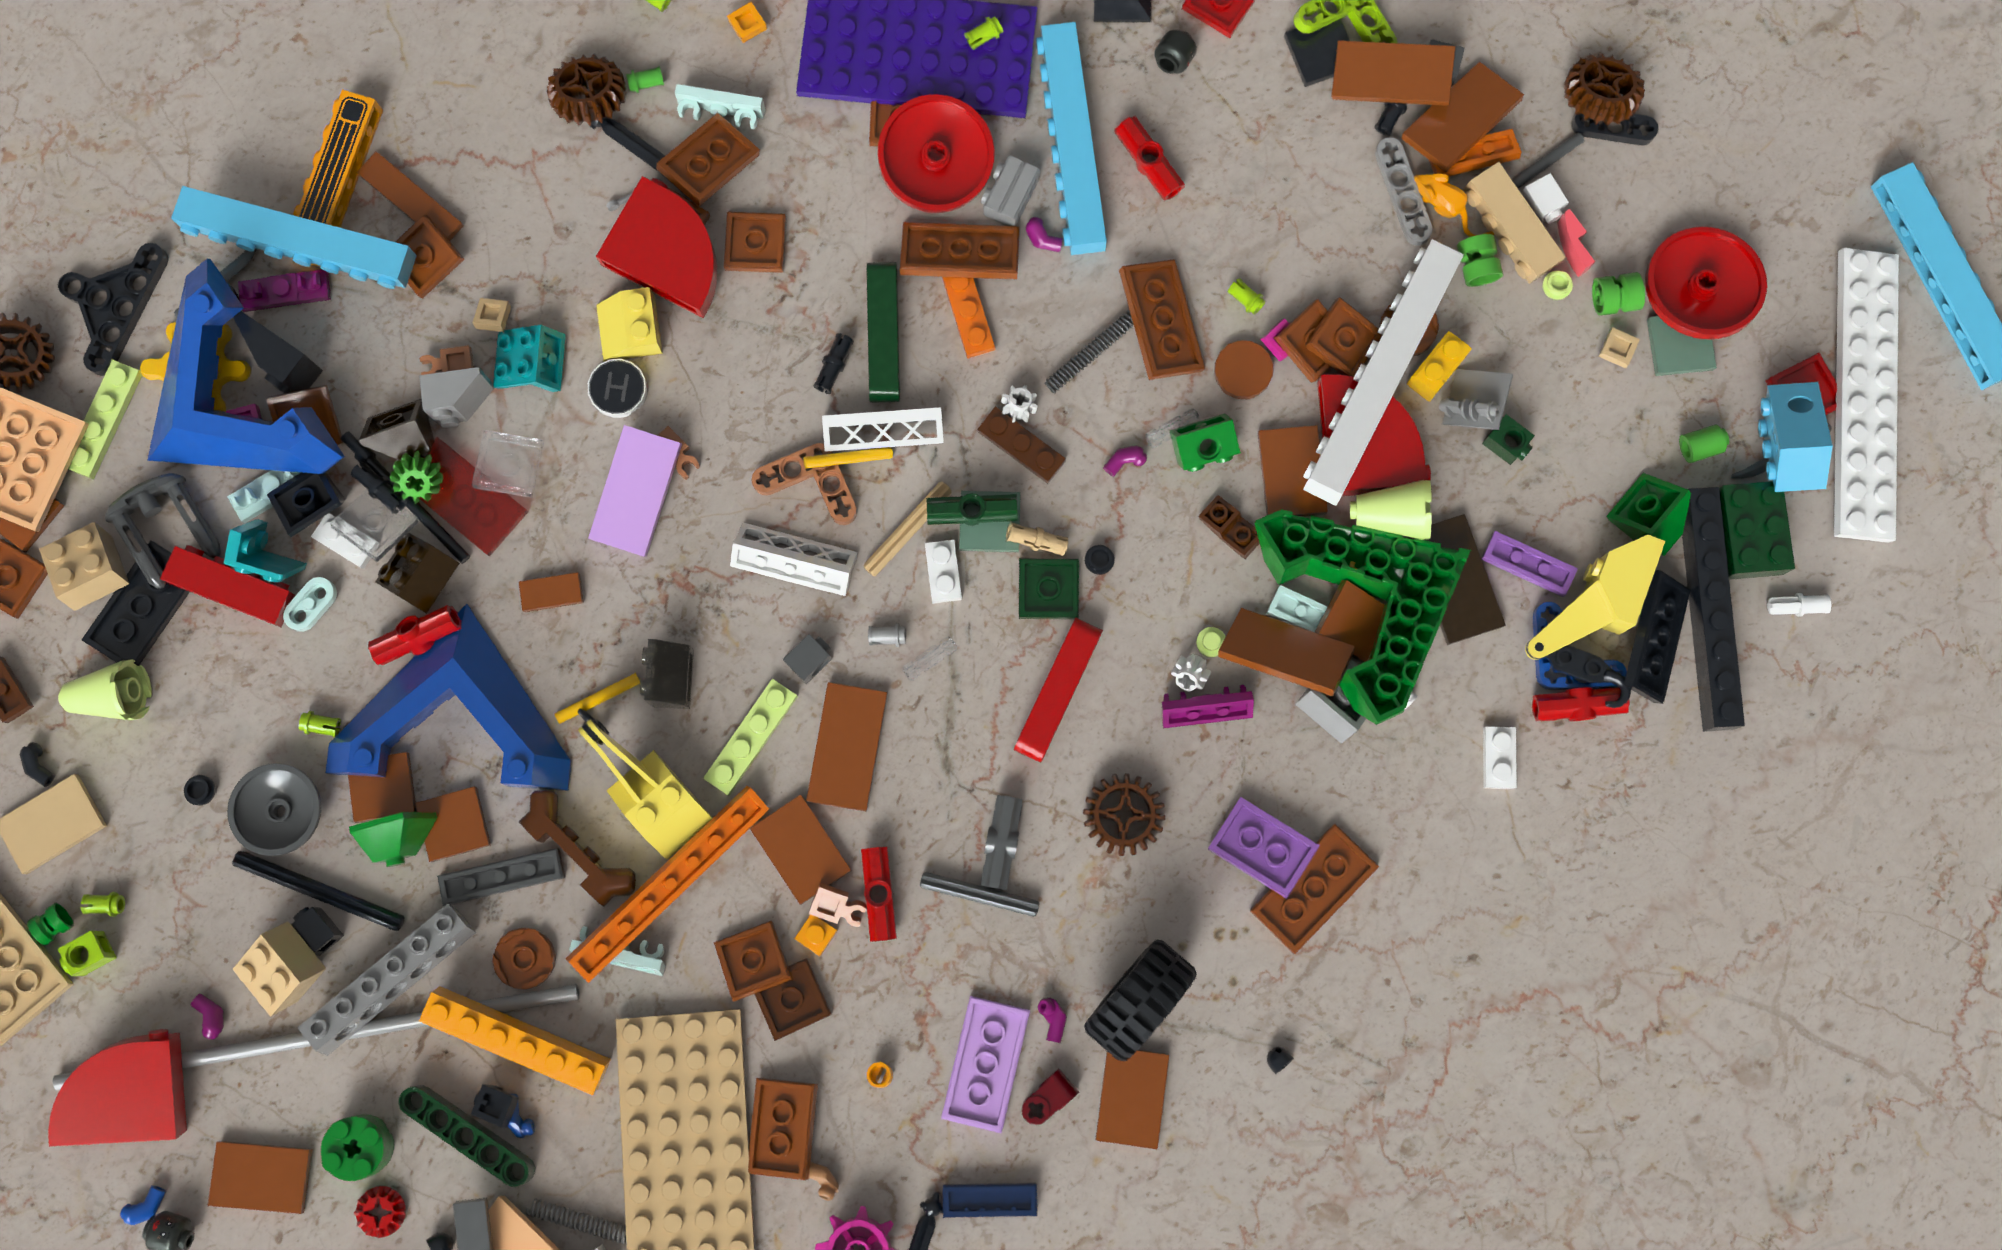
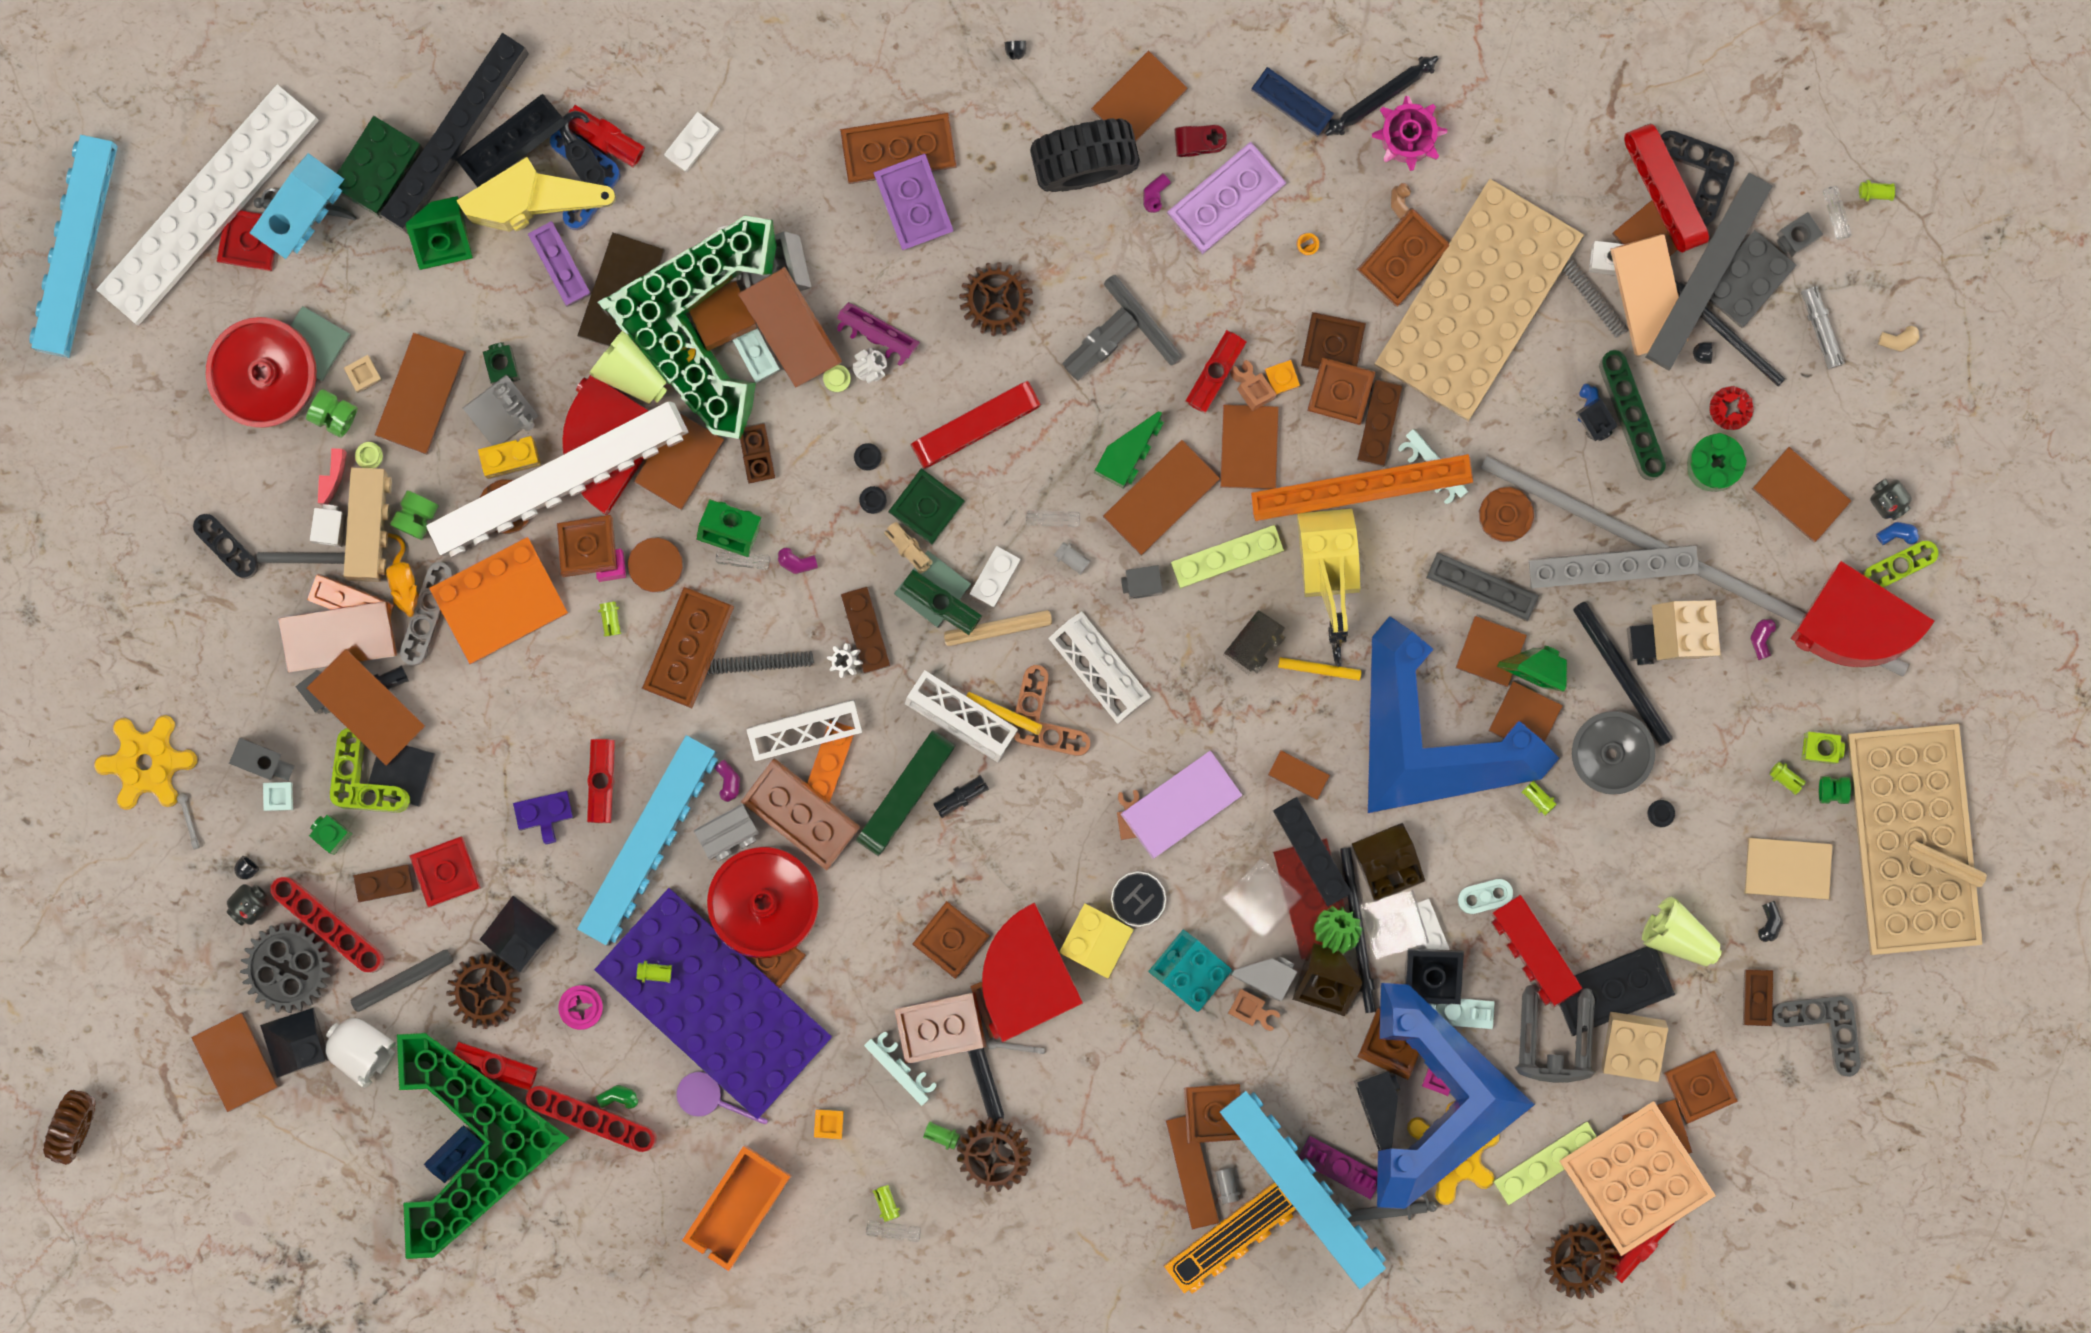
camera: 140 degrees left, 5 degrees up
(103, 1194) = (1915, 549): none -> lime beam
(119, 290) = (1467, 1260): black beam -> none
(247, 554) = (1497, 950): teal bracket -> none
(373, 209) = (1227, 1186): none -> light grey pin
(378, 487) = (1372, 948): black pin -> none
(414, 635) = (1422, 812): red piece -> none
(490, 532) = (1312, 851): none -> black plate
(491, 314) = (1193, 1026): tan plate -> none
(514, 1040) = (1550, 455): light orange brick -> none
(601, 882) = (1424, 602): reddish brown plate -> none
(698, 957) = (1379, 423): none -> reddish brown plate
(907, 757) = (1122, 455): none -> green slope
(1018, 328) = (803, 719): none -> white fence
(1132, 593) = (867, 457): none -> black plate
(1175, 51) = (515, 852): pearl dark grey head -> none
(1177, 101) = (543, 812): none -> dark purple plate
(1343, 338) = (564, 530): dark orange tile -> none
(1352, 241) = (498, 600): none -> orange slope
(1557, 368) = (420, 393): none -> dark orange tile
(1602, 95) = (221, 559): reddish brown gear -> none
(1703, 443) = (359, 256): bright green brick -> none
(1799, 604) = (386, 90): white axle -> none

